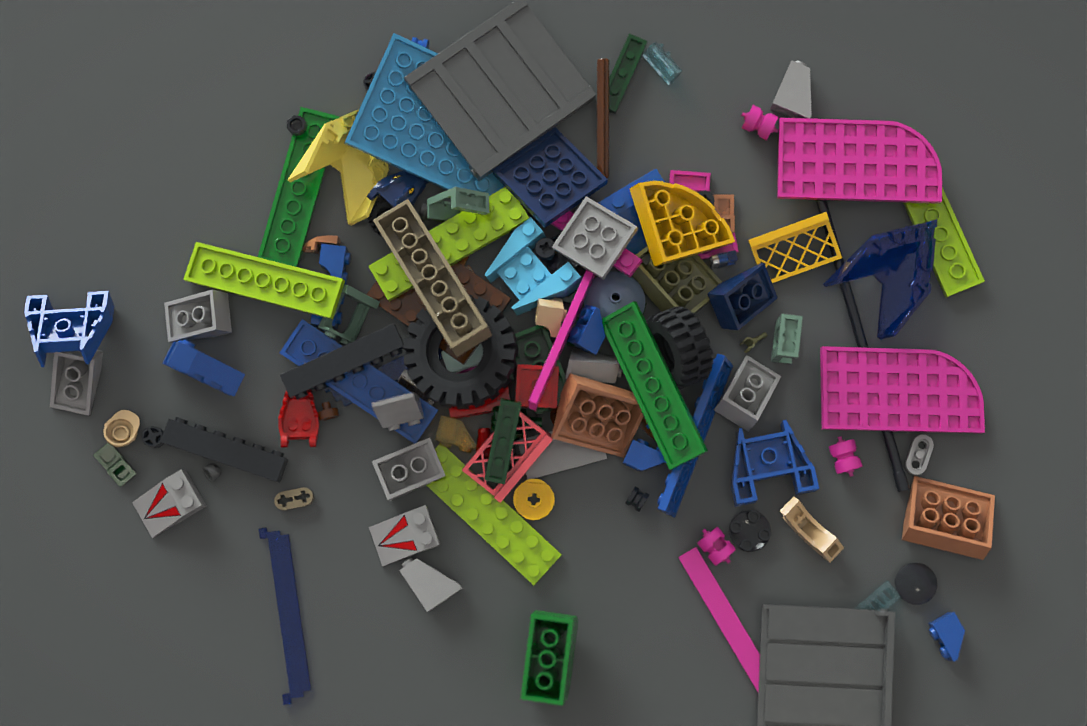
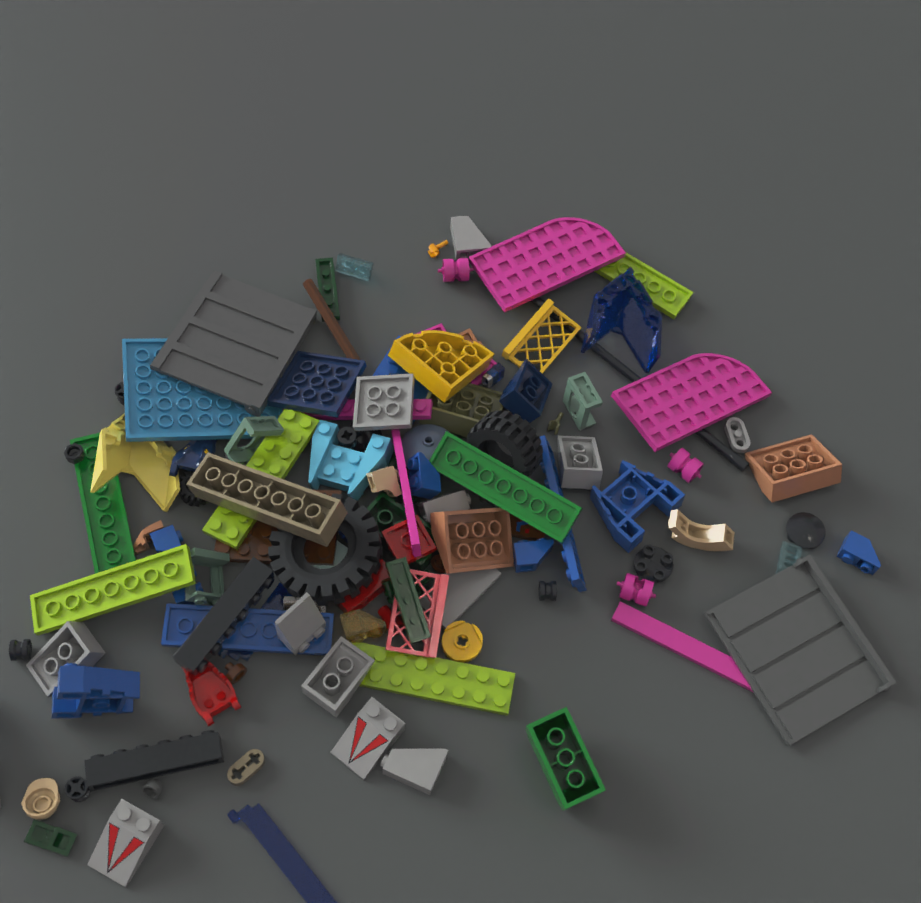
camera: 40 degrees left, 20 degrees down
(165, 288) = (20, 649): none -> black wheel
(753, 85) = (434, 249): none -> light orange hand

